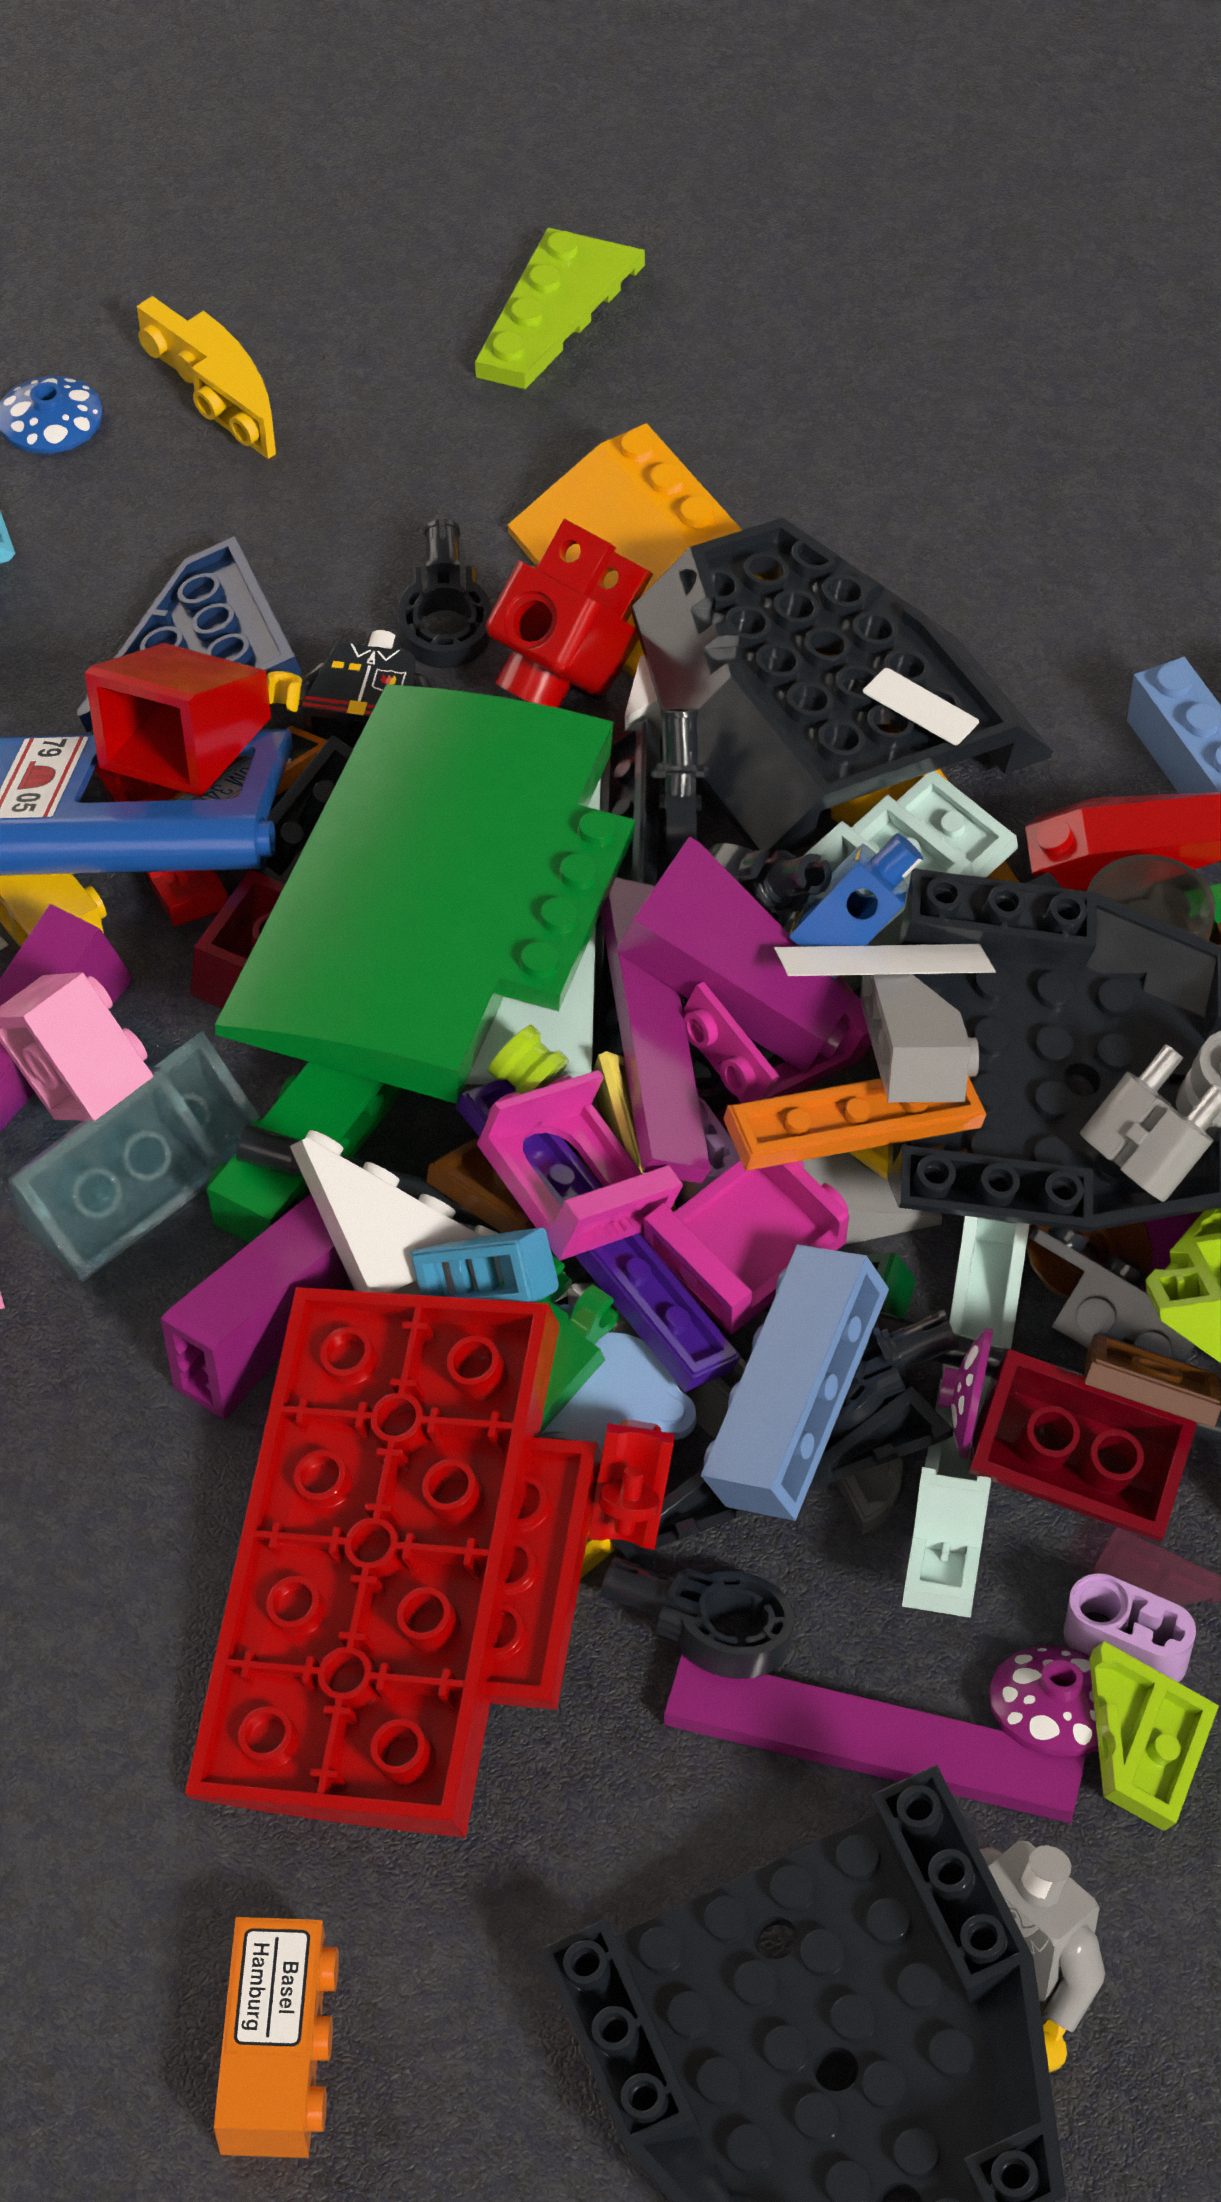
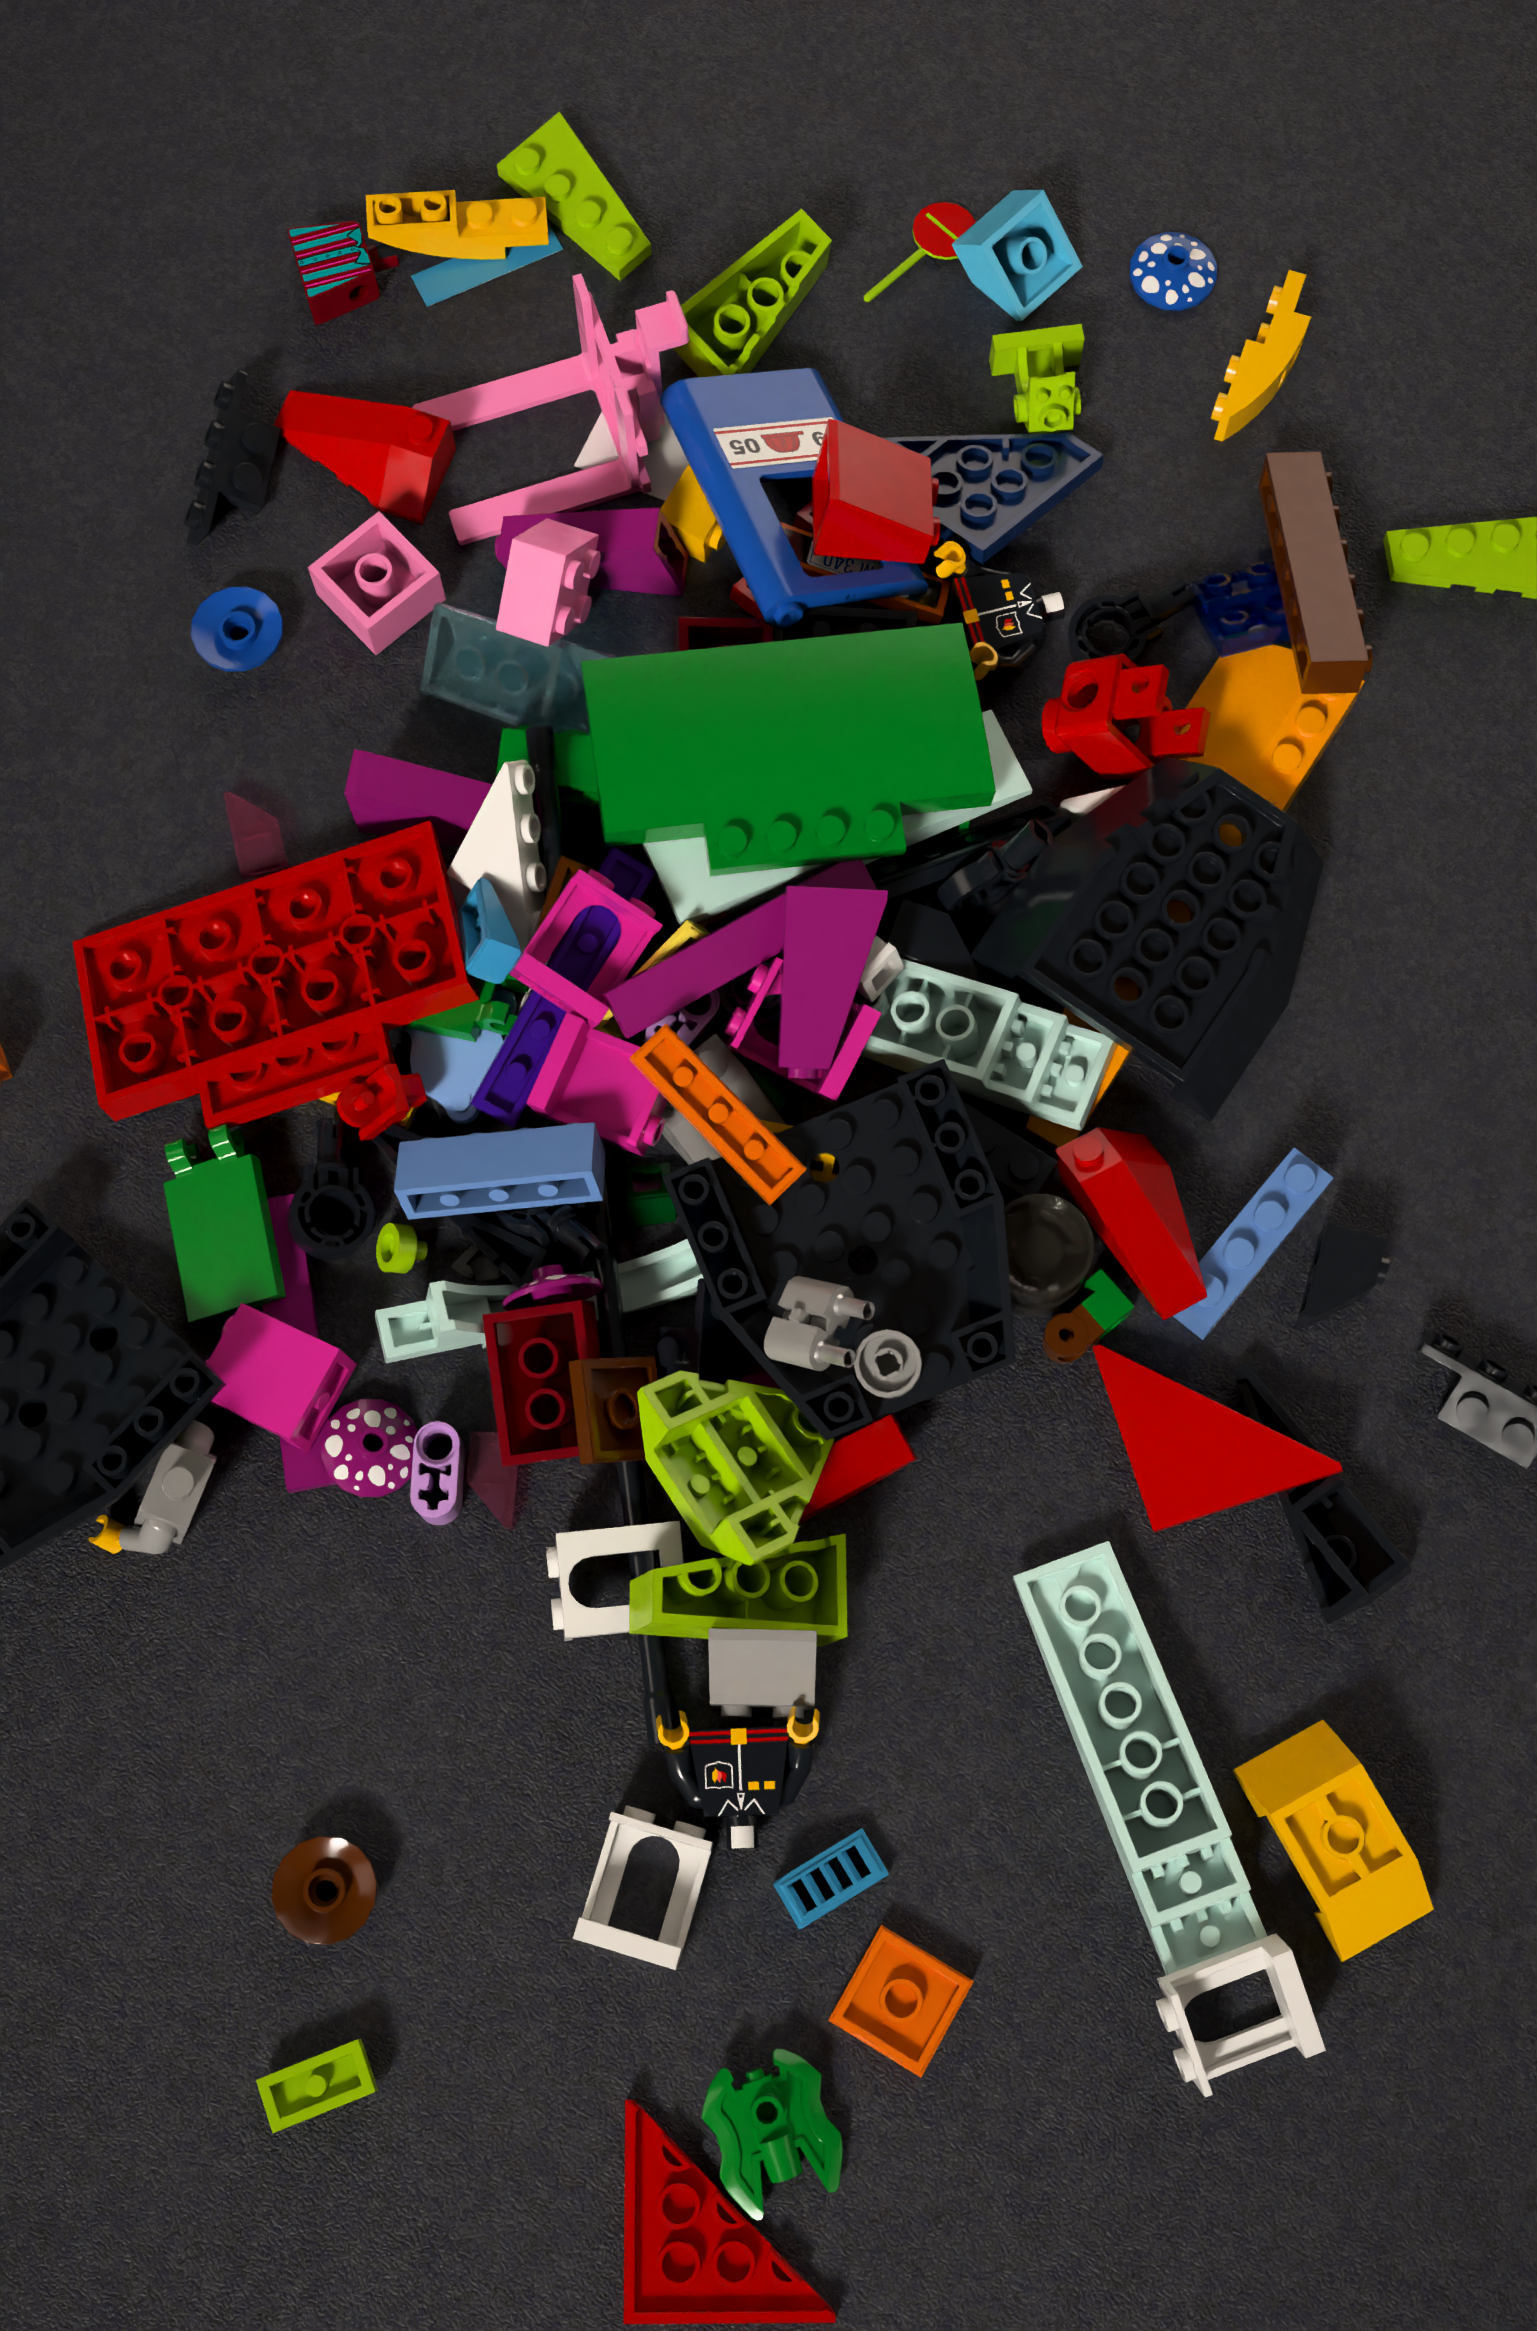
camera: 65 degrees right, 20 degrees up
(80, 548) = (1038, 359): none -> lime tile
(164, 1529) = (255, 837): none -> clear pink tile
(493, 497) = (1241, 609): none -> clear blue slope
(499, 413) = (1313, 573): none -> reddish brown brick
(527, 1062) = (650, 877): lime wheel -> none
(689, 1756) = (221, 1228): none -> green tile
(777, 882) = (906, 967): black pin -> none
(813, 1567) = (399, 1248): none -> lime tile
(846, 916) = (922, 1031): blue torso -> none
(884, 959) = (854, 1074): white sticker -> none
(917, 1040) = (787, 1127): light grey slope -> none
(918, 1722) = (278, 1376): none -> dark pink panel
(921, 706) = (1156, 1002): white sticker -> none
(1146, 1735) = (359, 1516): lime wing -> none

